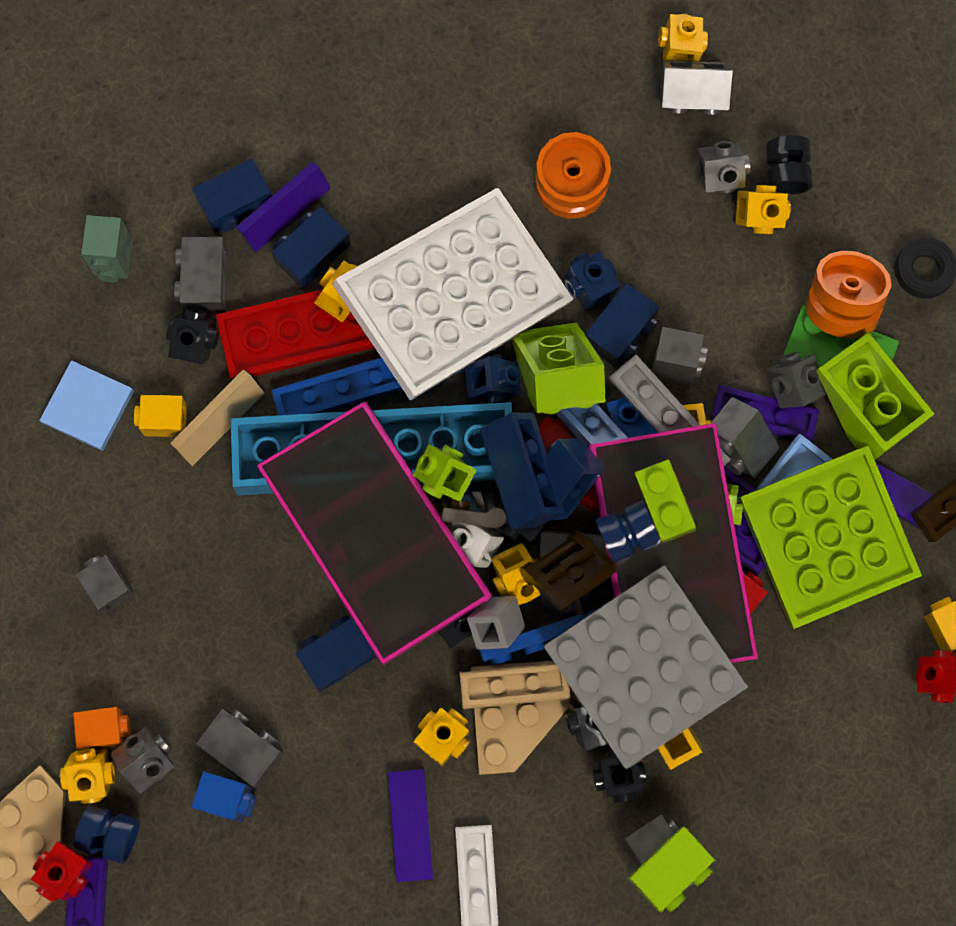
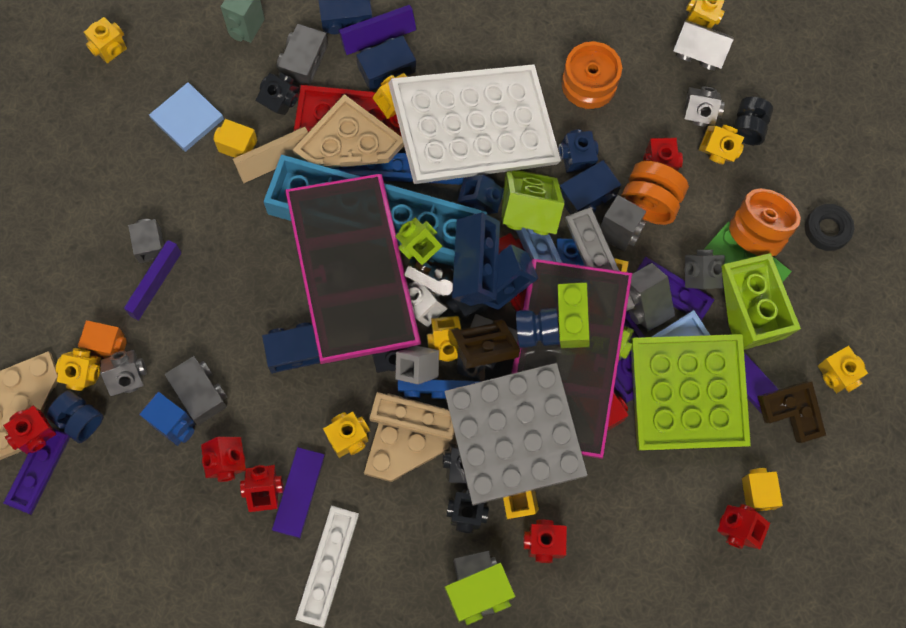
camera: 15 degrees right, 5 degrees down
(131, 631) = (152, 280): none -> dark purple tile
(304, 365) = (348, 138): none -> tan plate
(306, 819) = (223, 458): none -> red brick
(366, 838) = (261, 488): none -> red brick
(697, 253) = (665, 152): none -> red brick
(703, 302) = (656, 190): none -> orange wheel
(736, 774) = (556, 539): none -> red brick

